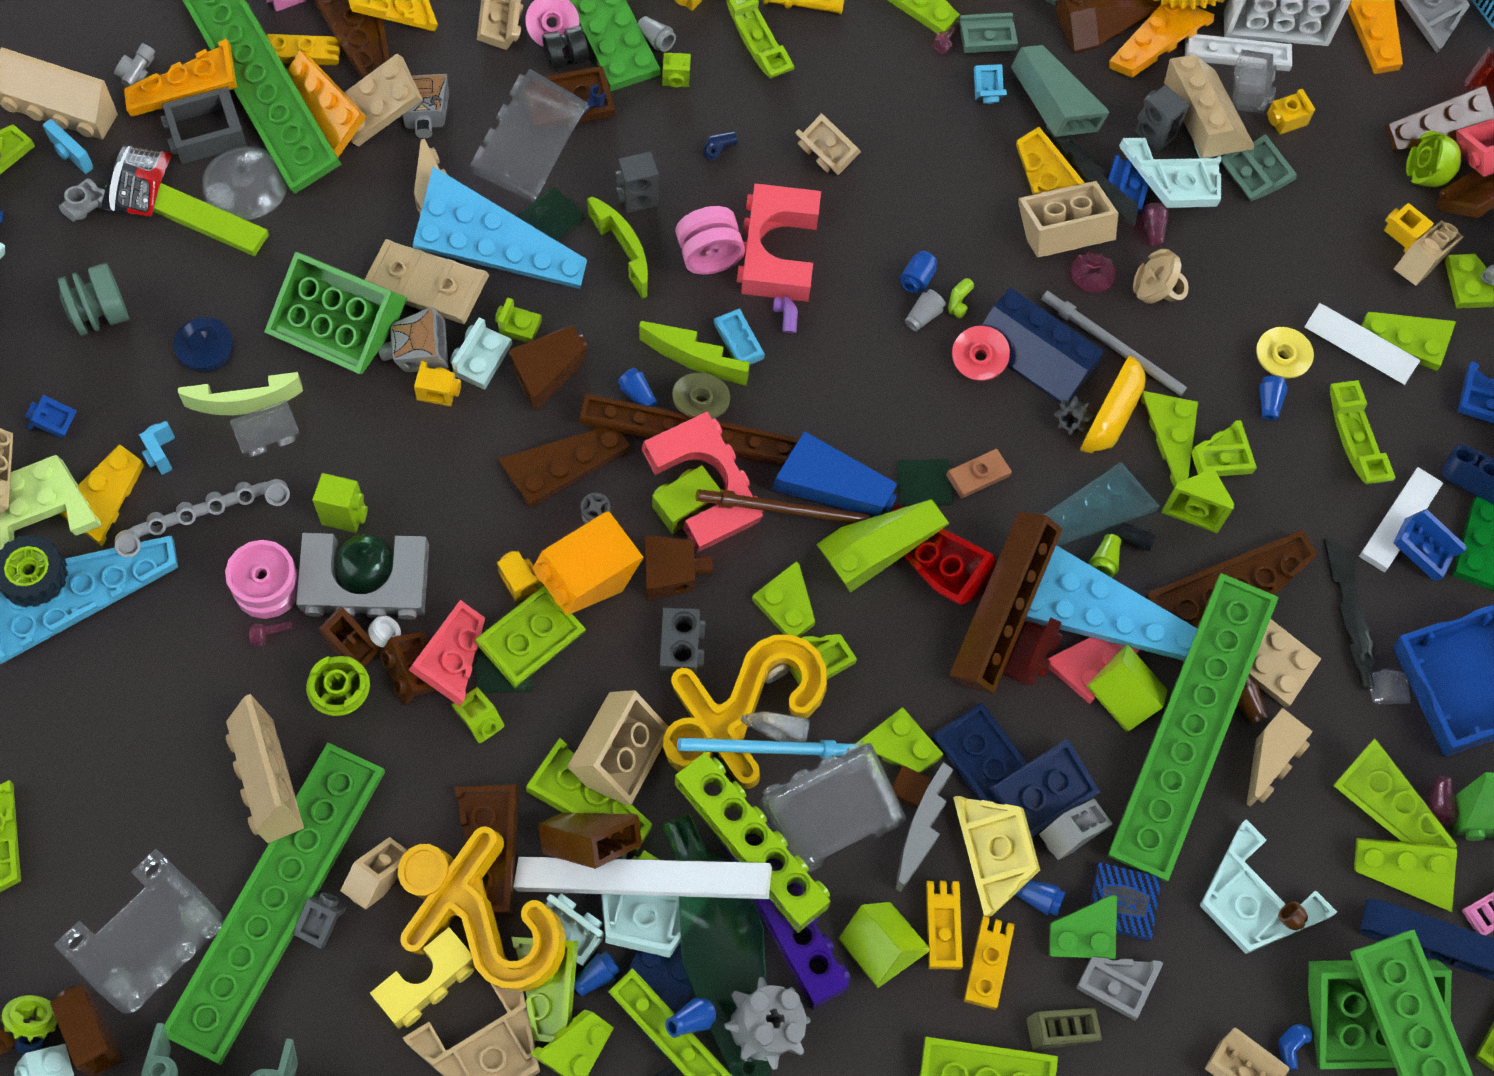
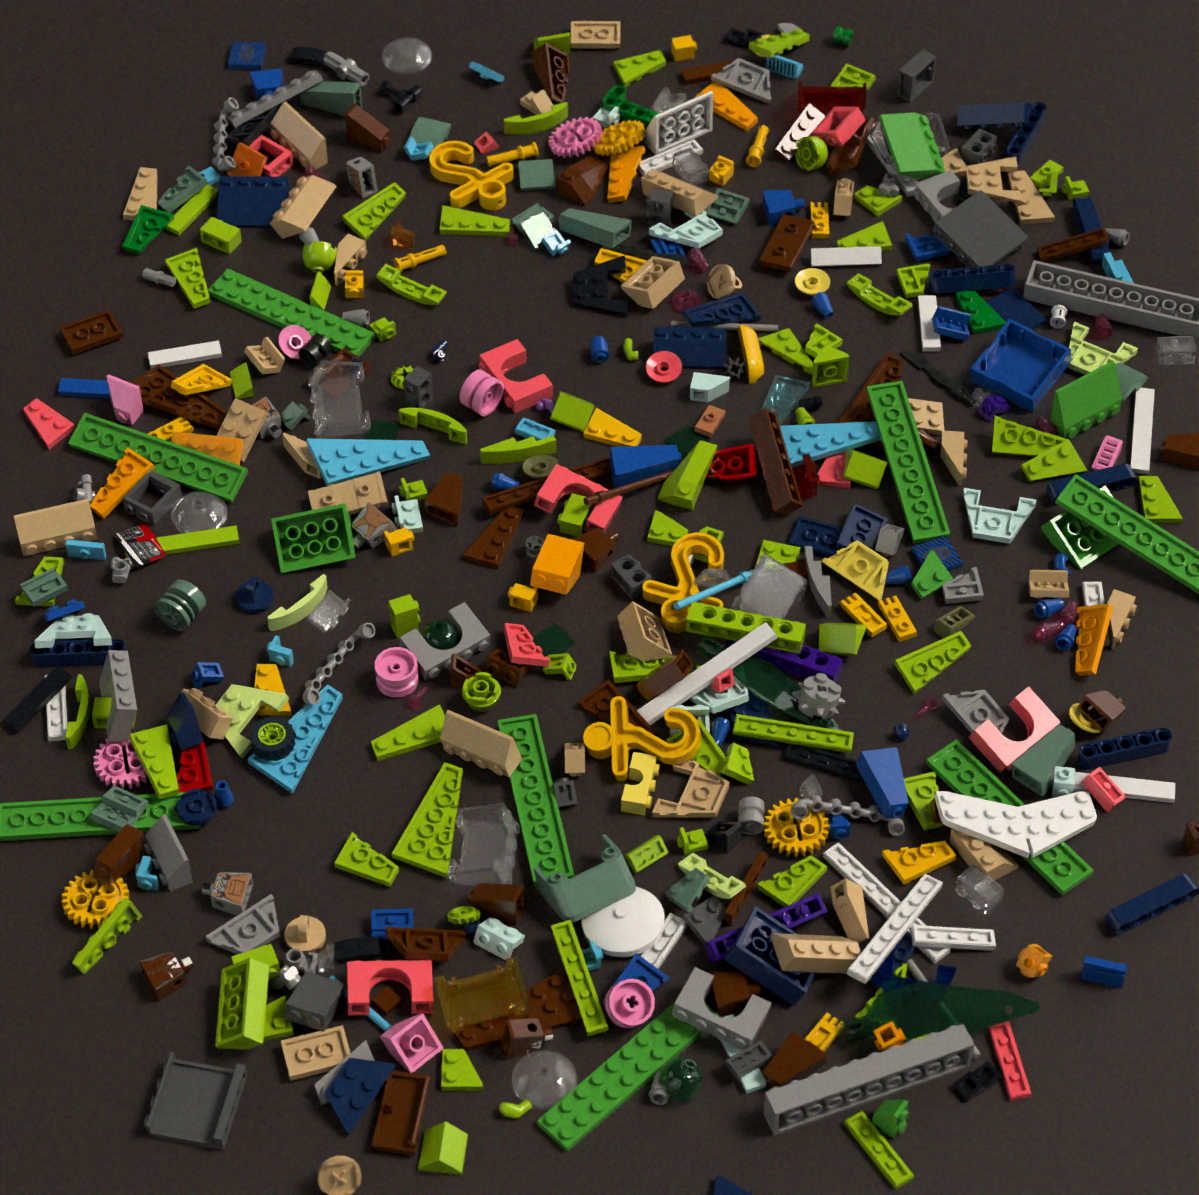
camera: 30 degrees left, 15 degrees down
(97, 856) = (431, 830): none -> lime wing
(213, 682) = (410, 736): none -> lime wing
(383, 629) = (477, 659): white tile -> none
(448, 35) = (241, 382): none -> lime slope
(467, 119) = (294, 414): none -> sand green bracket
(529, 636) = (554, 618): lime tile -> none
(654, 906) = (723, 681): none -> coral slope
(658, 149) = (397, 376): none -> lime gear
(692, 1018) = (783, 712): blue cone -> none
(809, 339) = (572, 411): none -> lime slope
(829, 144) = (498, 318): tan bracket -> none
(838, 403) = (610, 431): none -> yellow wing
(925, 309) = (617, 363): light grey cone -> none
(980, 48) = (536, 229): none -> clear green piece
(985, 174) = (591, 287): none -> black wing
(1015, 421) = (708, 387): none -> light aqua slope
(1131, 322) = (722, 311): none -> dark blue wing
(1293, 915) = (1018, 510): reddish brown hinge -> none
(1294, 273) = (786, 243): none -> reddish brown container
(1330, 212) = (778, 203): none -> blue torso
(1363, 110) = (756, 150): none -> yellow pin
(1368, 266) = (821, 218): none -> yellow hinge
(1390, 713) = (993, 405): none -> dark purple bracket
(1407, 225) = (824, 191): yellow brick -> none
(1430, 438) = (913, 279): none -> lime wing

